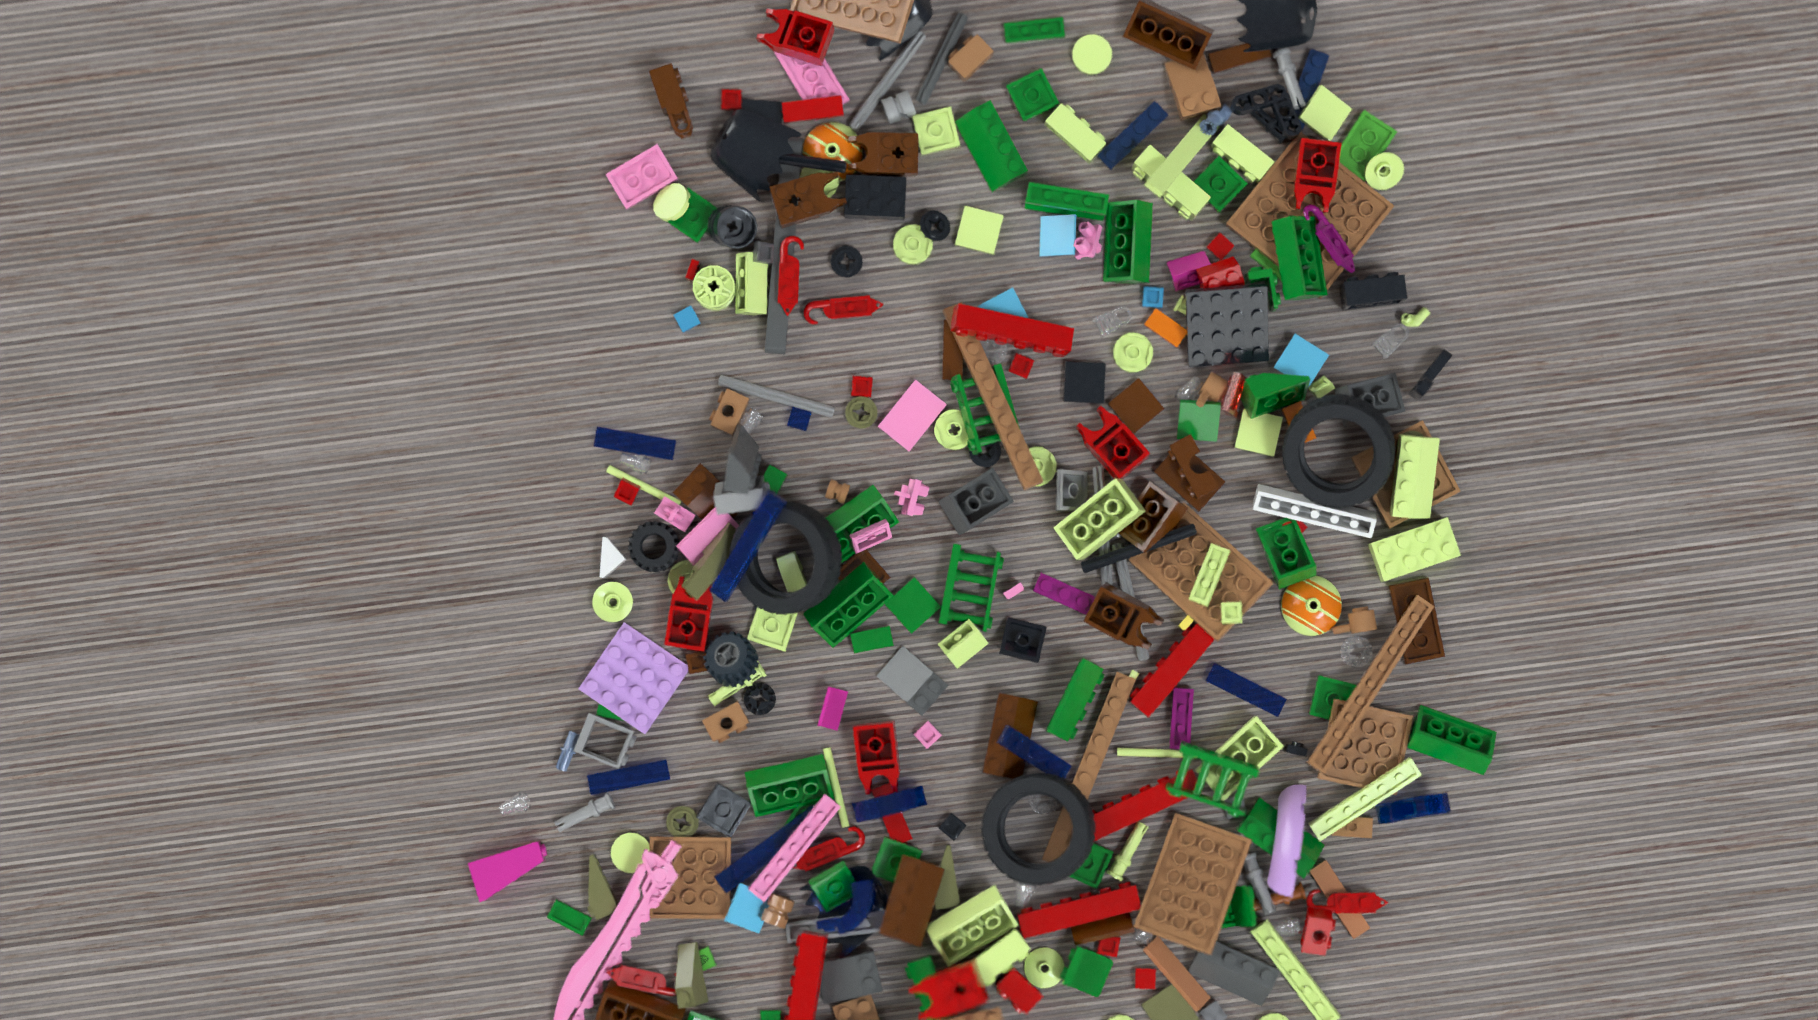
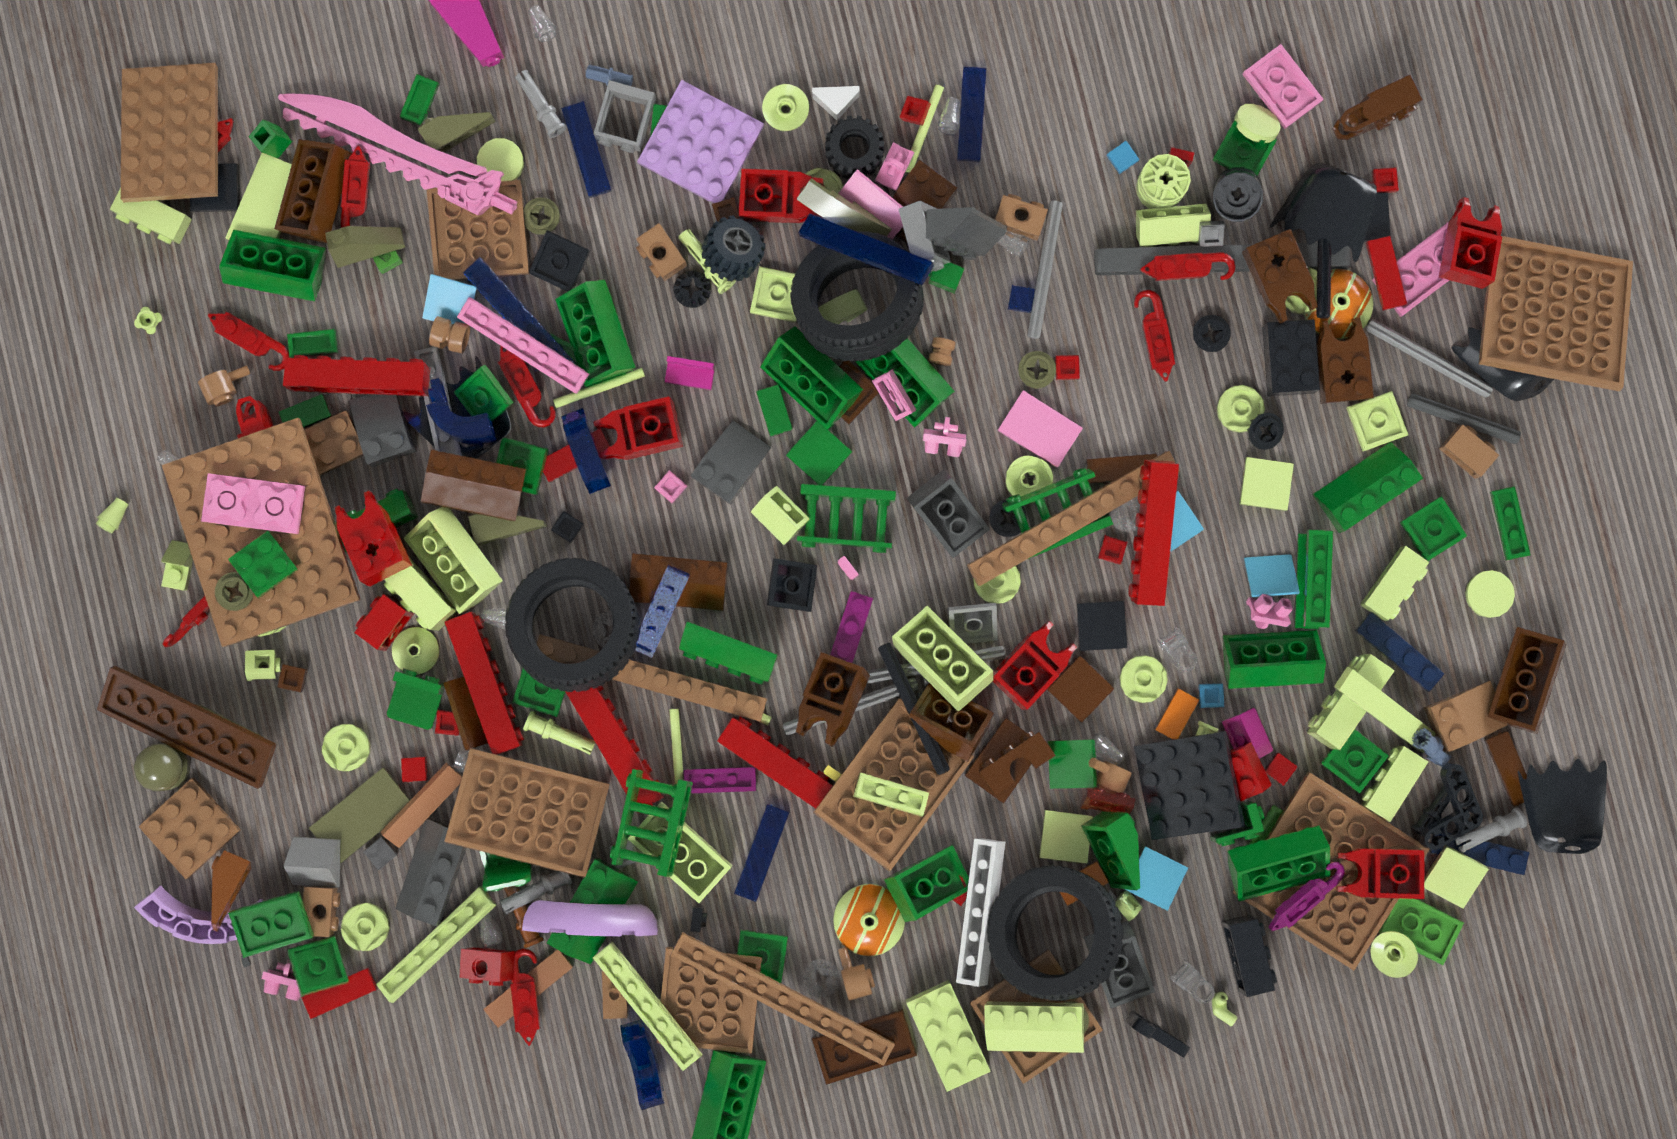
camera: 85 degrees right, 0 degrees up
(898, 107) = (1400, 373): light grey wheel -> none
(1231, 612) = (849, 825): yellowish green tile -> none

